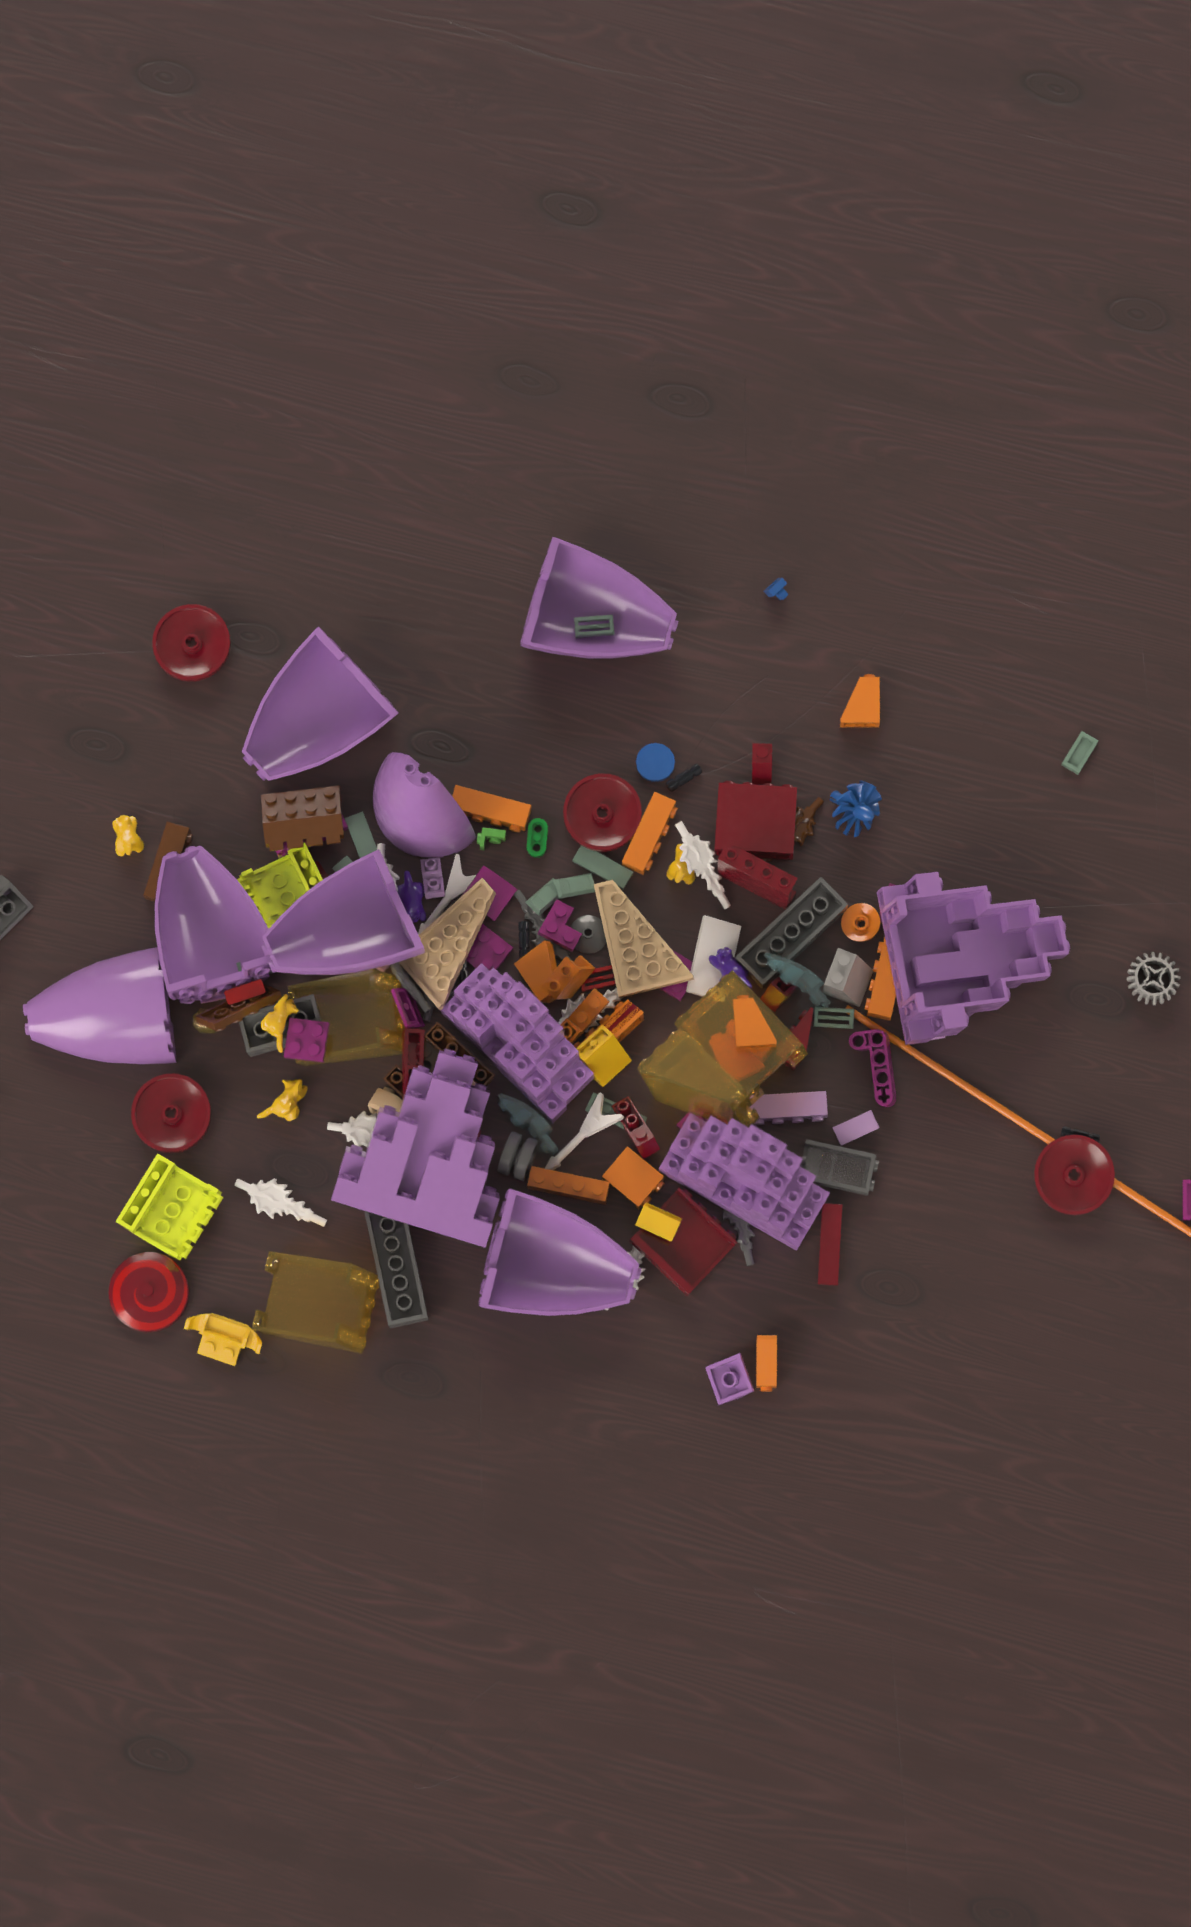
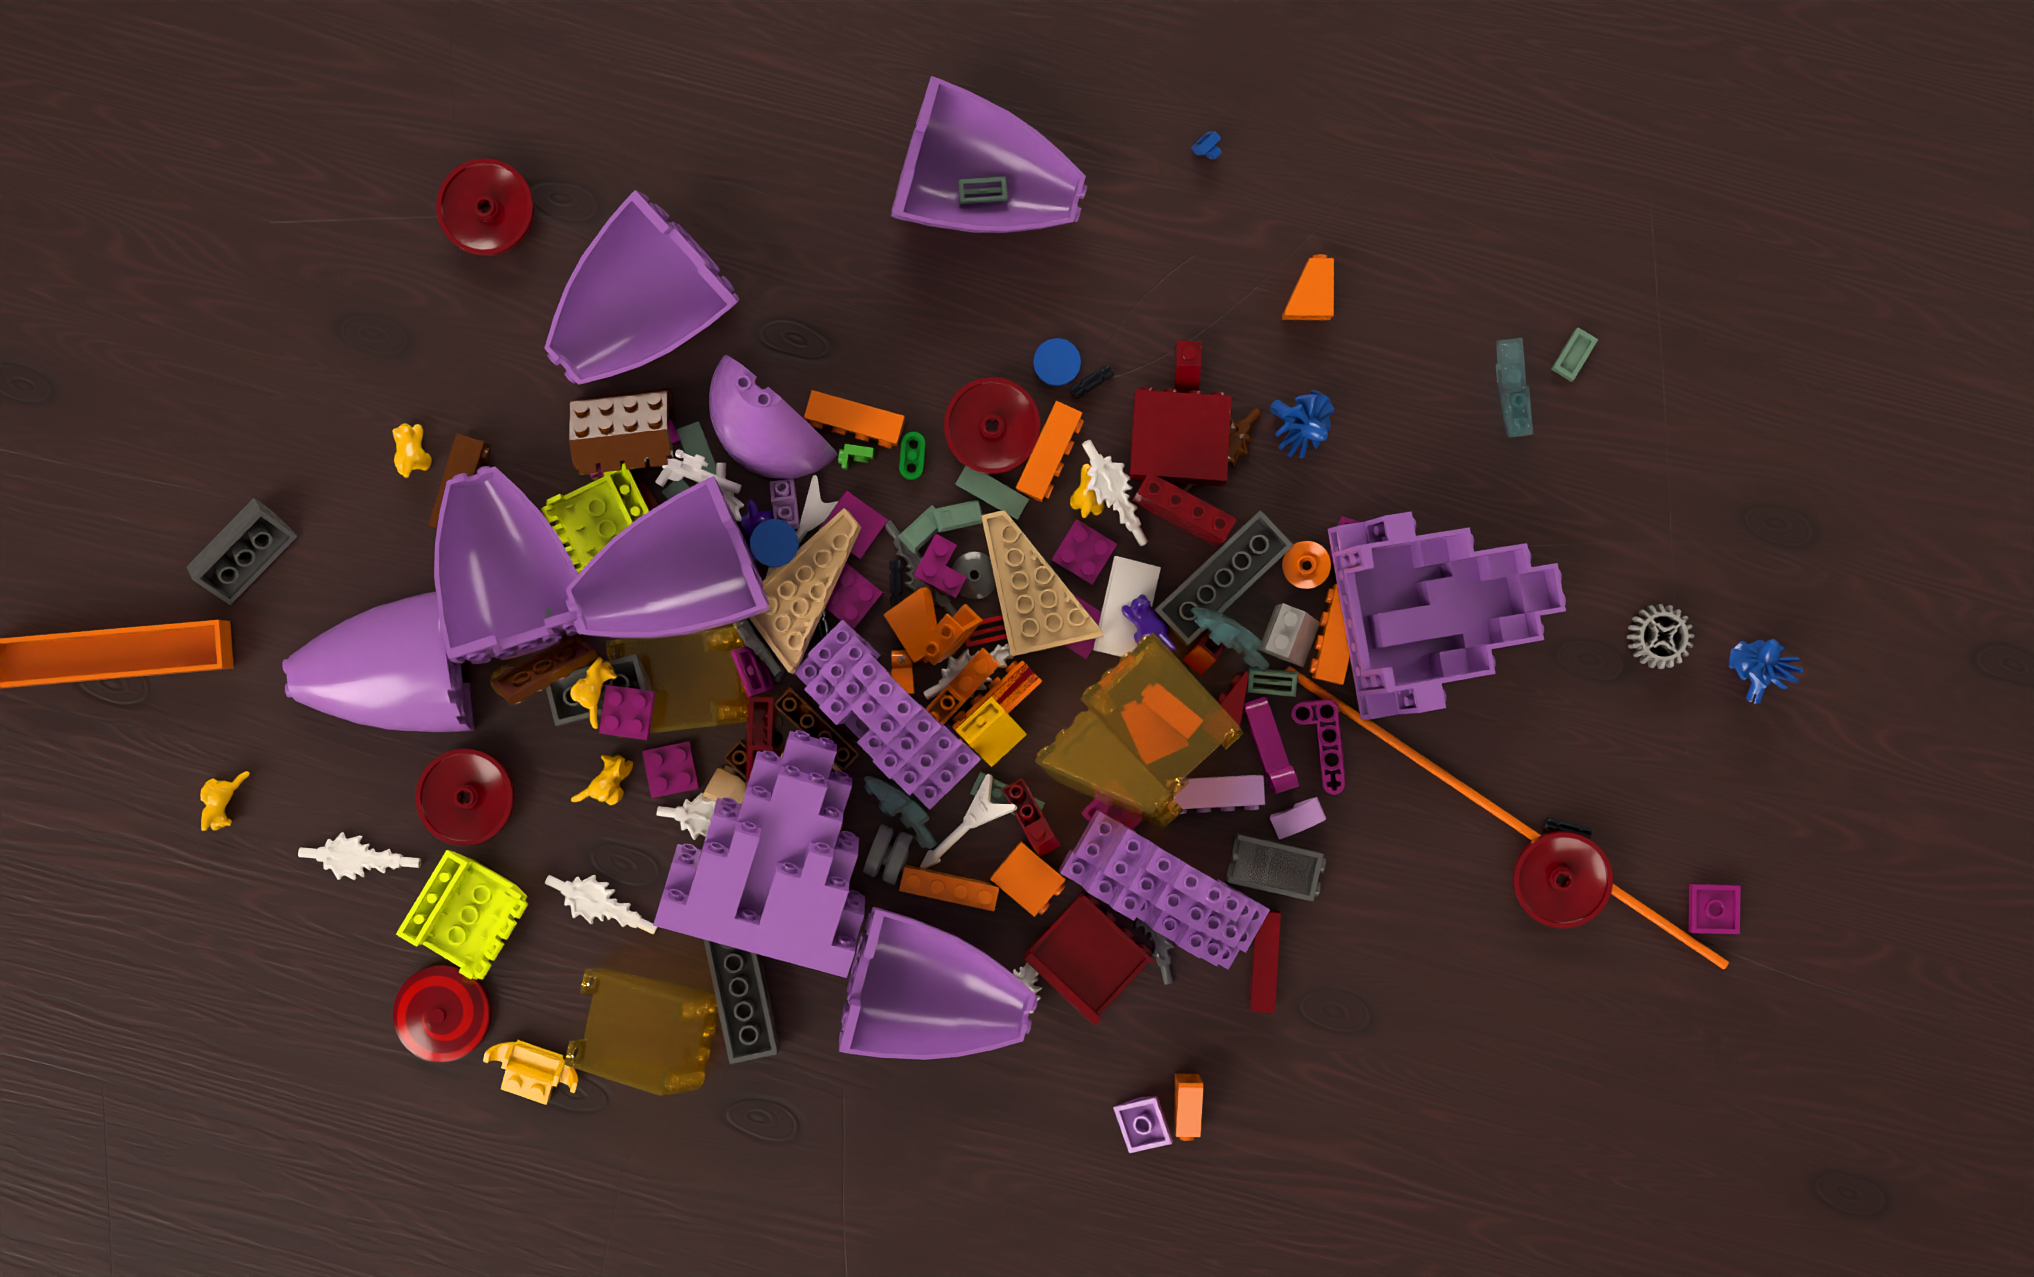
camera: 10 degrees left, 10 degrees up
(73, 1165) = (350, 857): none -> white piece
(244, 991) = (552, 650): red slope -> none
(338, 1092) = (671, 769): none -> magenta plate
(356, 847) = (692, 469): none -> white piece
(425, 906) = (774, 543): none -> blue tile
(658, 1221) = (1059, 936): yellow hinge -> none
(678, 914) = (1084, 552): none -> magenta plate
(750, 1025) = (1175, 704): orange slope -> none
(831, 1068) = (1269, 746): none -> magenta beam
(1029, 779) = (1512, 387): none -> clear light blue slope

